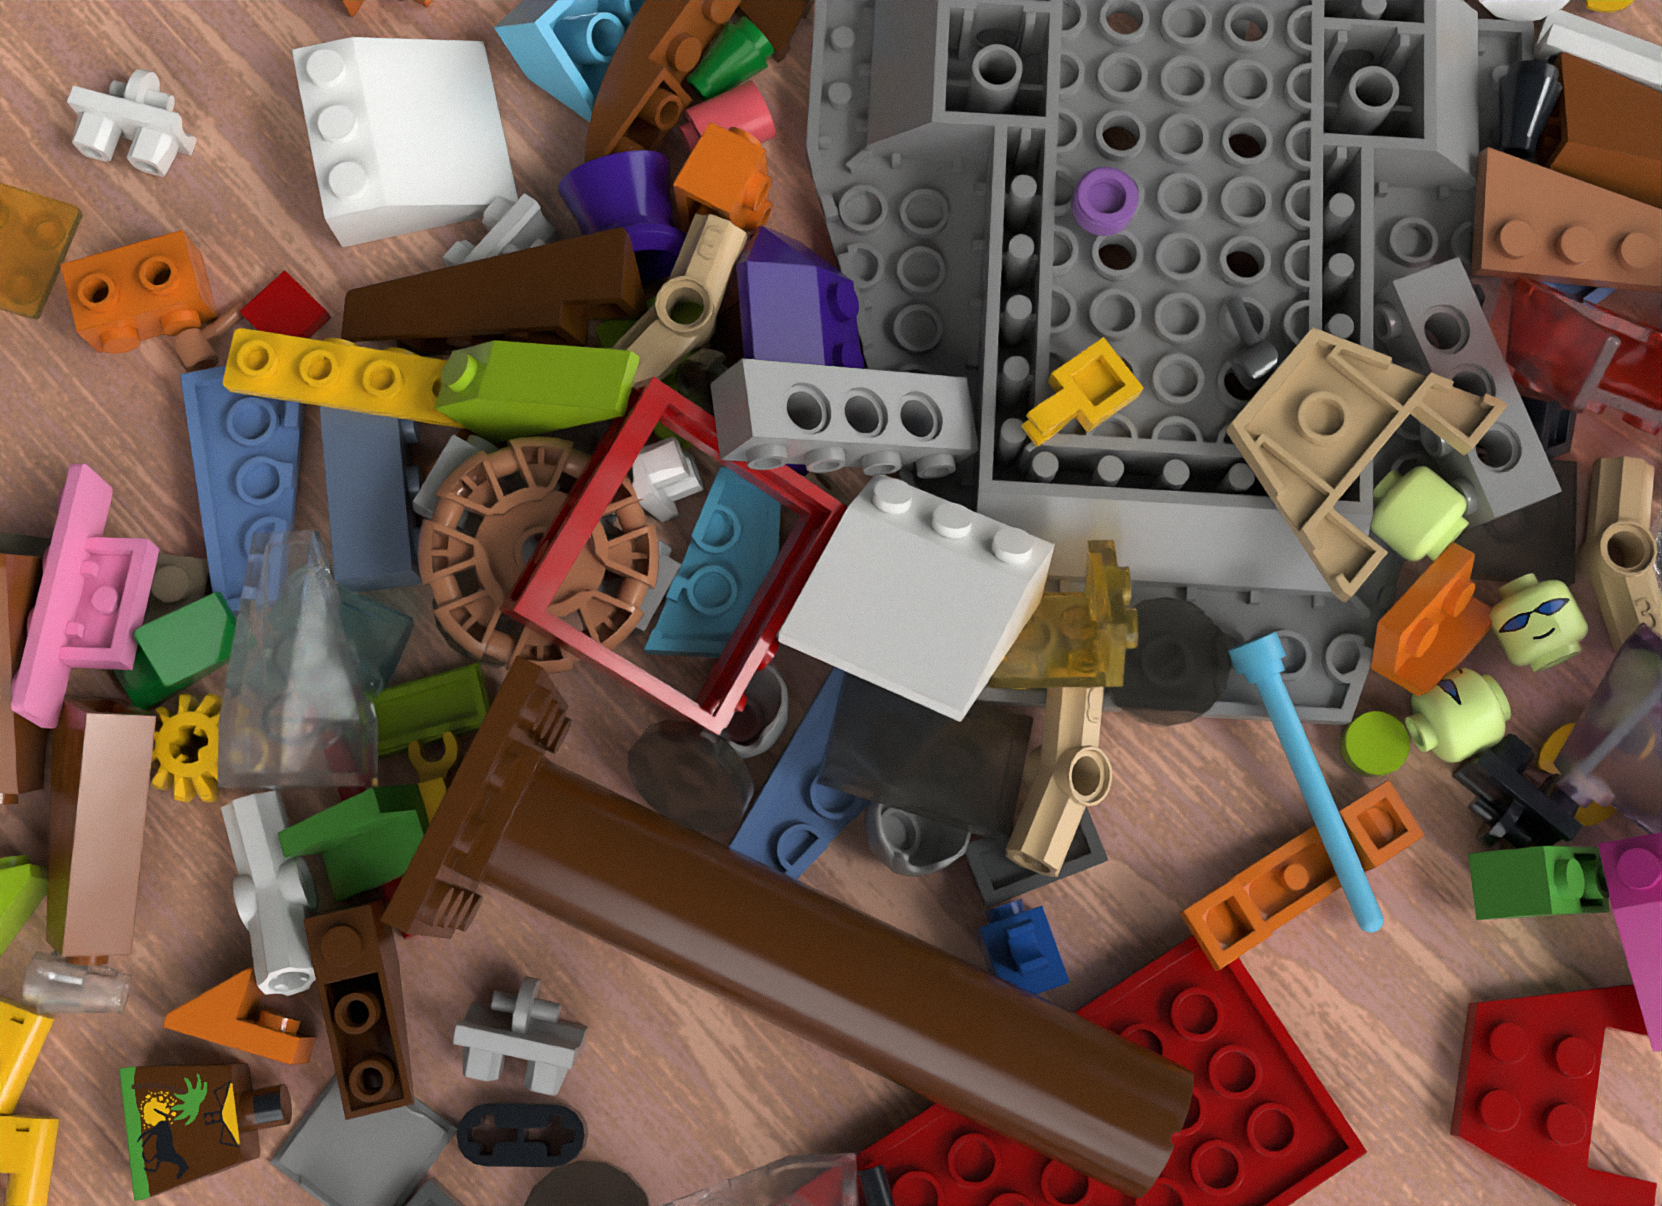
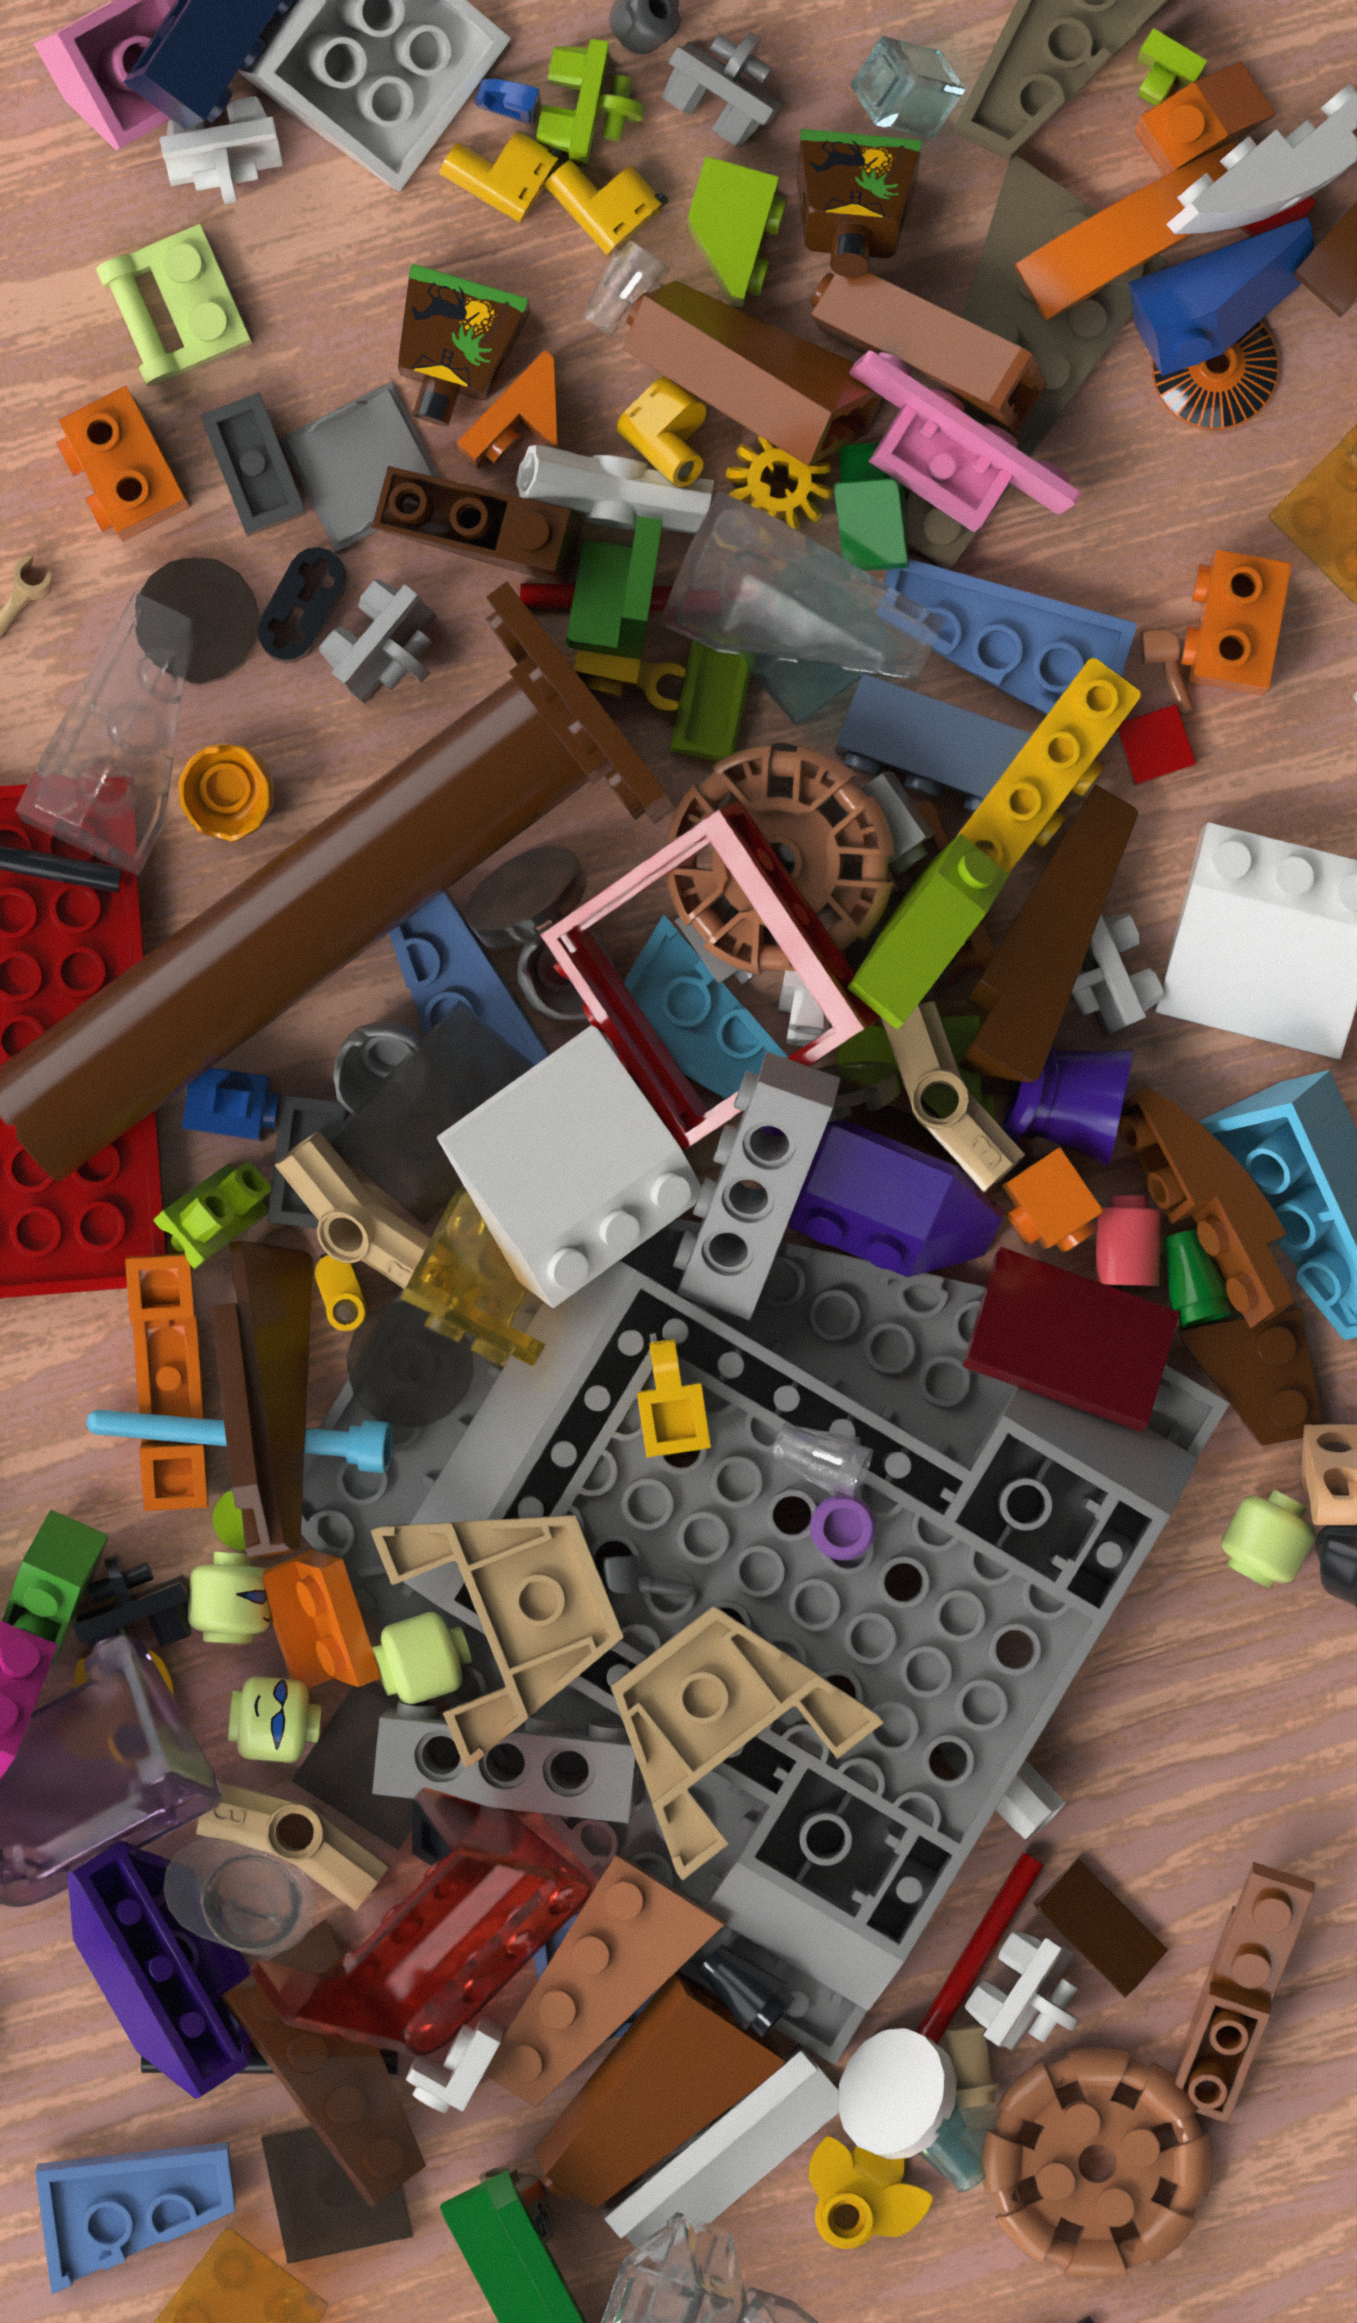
camera: 120 degrees right, 10 degrees up
(196, 883) = (660, 425): none -> yellow piece
(734, 1110) = (226, 791): none -> light orange hair
(834, 118) = (1071, 1339): none -> dark red tile
(1056, 239) = (824, 1458): none -> clear cone
(1128, 911) = (215, 1212): none -> lime hips
(1140, 754) = (341, 1293): none -> yellow piece
(1266, 776) = (264, 1390): none -> reddish brown wedge
(1322, 234) = (706, 1700): none -> tan wing

